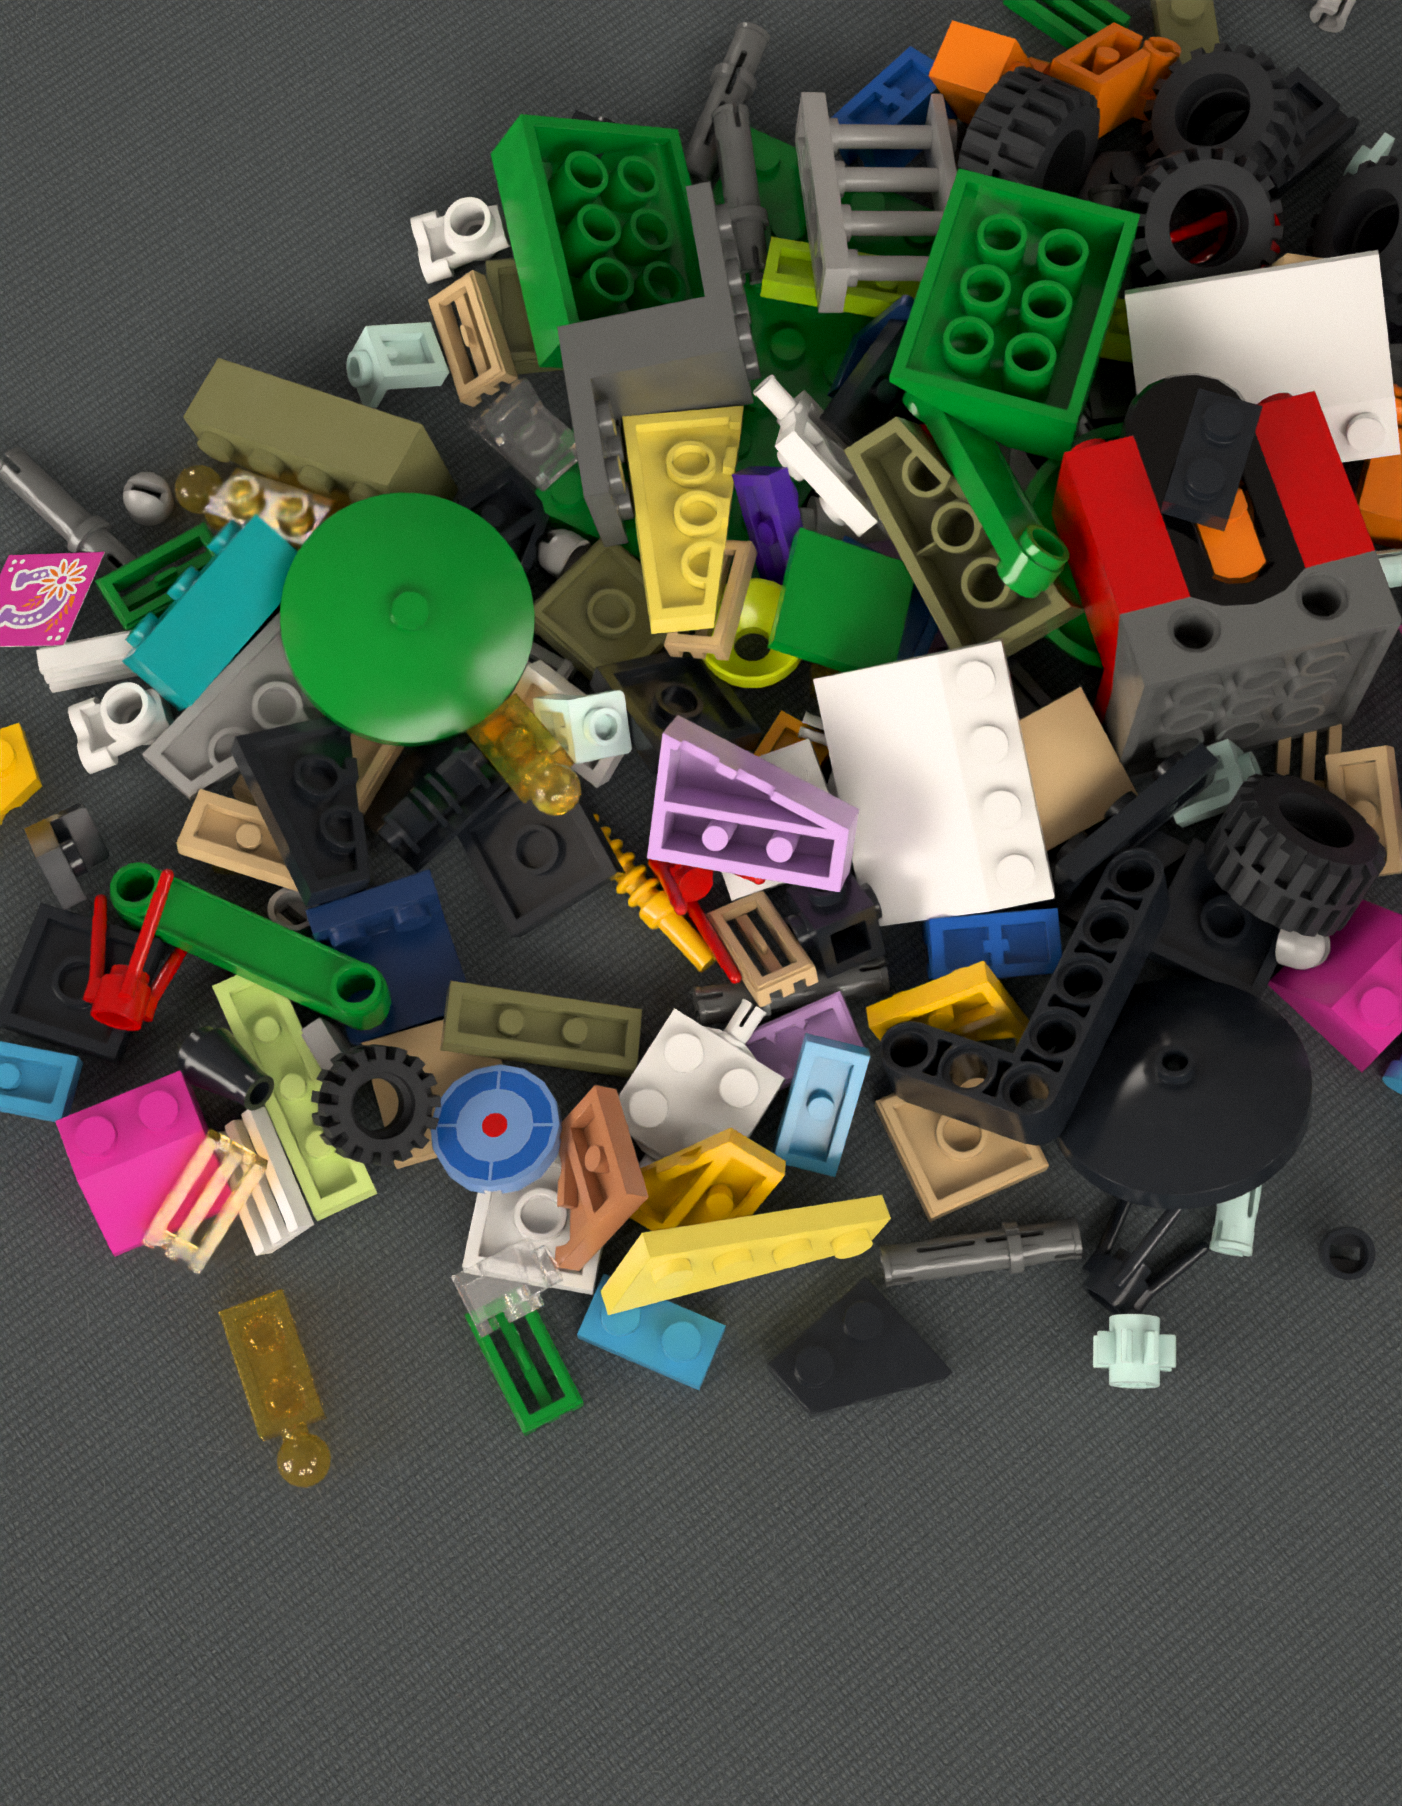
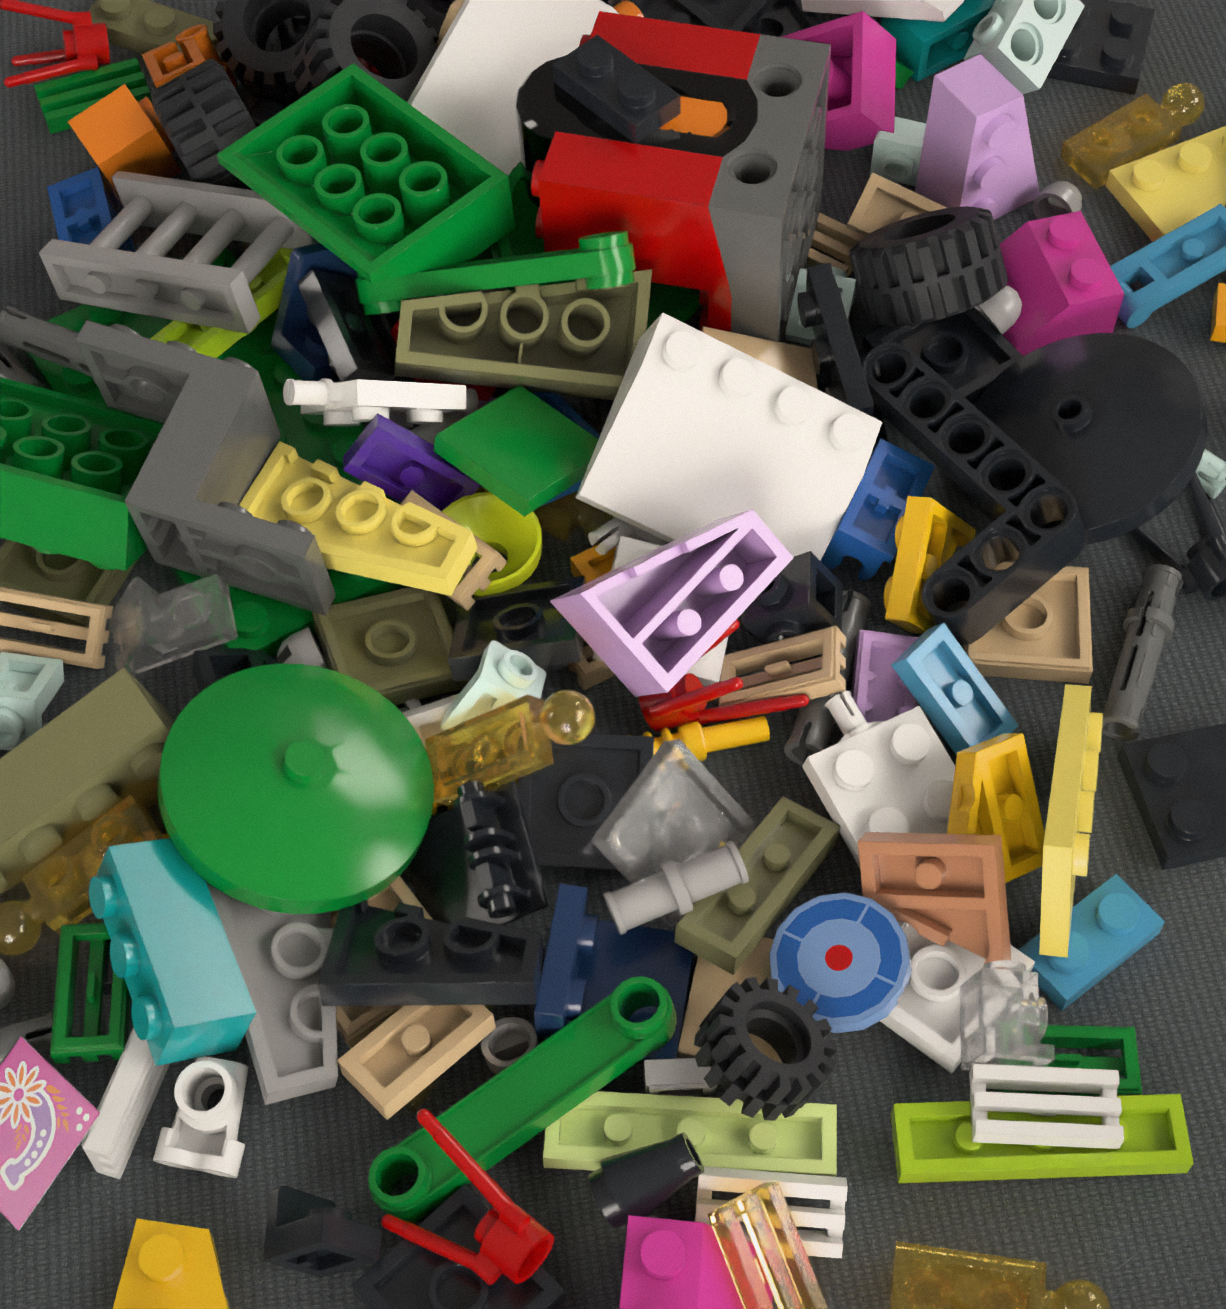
camera: 60 degrees left, 15 degrees down
(430, 1302) = (1046, 1079): none -> white tile
(437, 1367) = (937, 1144): none -> lime plate
(482, 962) = (676, 887): none -> light grey pin
(545, 935) = (671, 814): none -> clear plate

